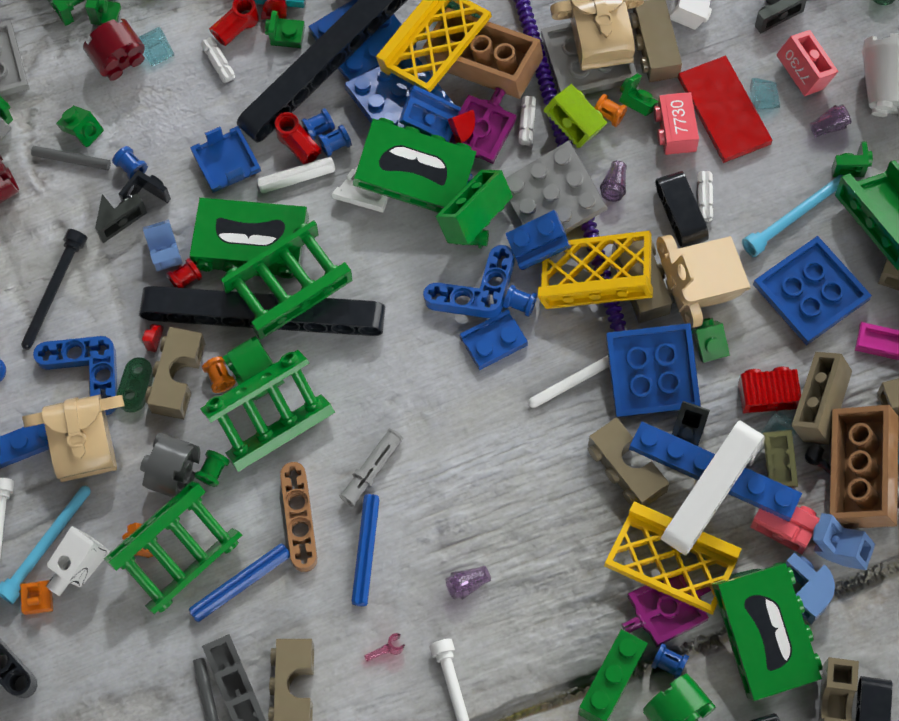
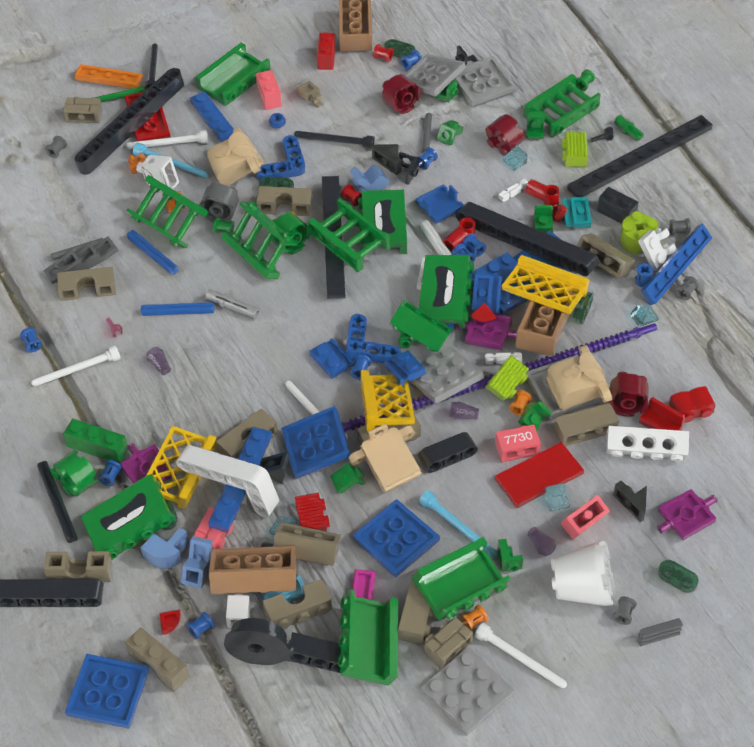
camera: 80 degrees right, 15 degrees down
(152, 337) = (306, 184): red tile -> none
(295, 517) = (197, 276): medium nougat beam -> none
(705, 194) = (462, 467): white axle -> none
(781, 457) = (259, 525): olive plate -> none

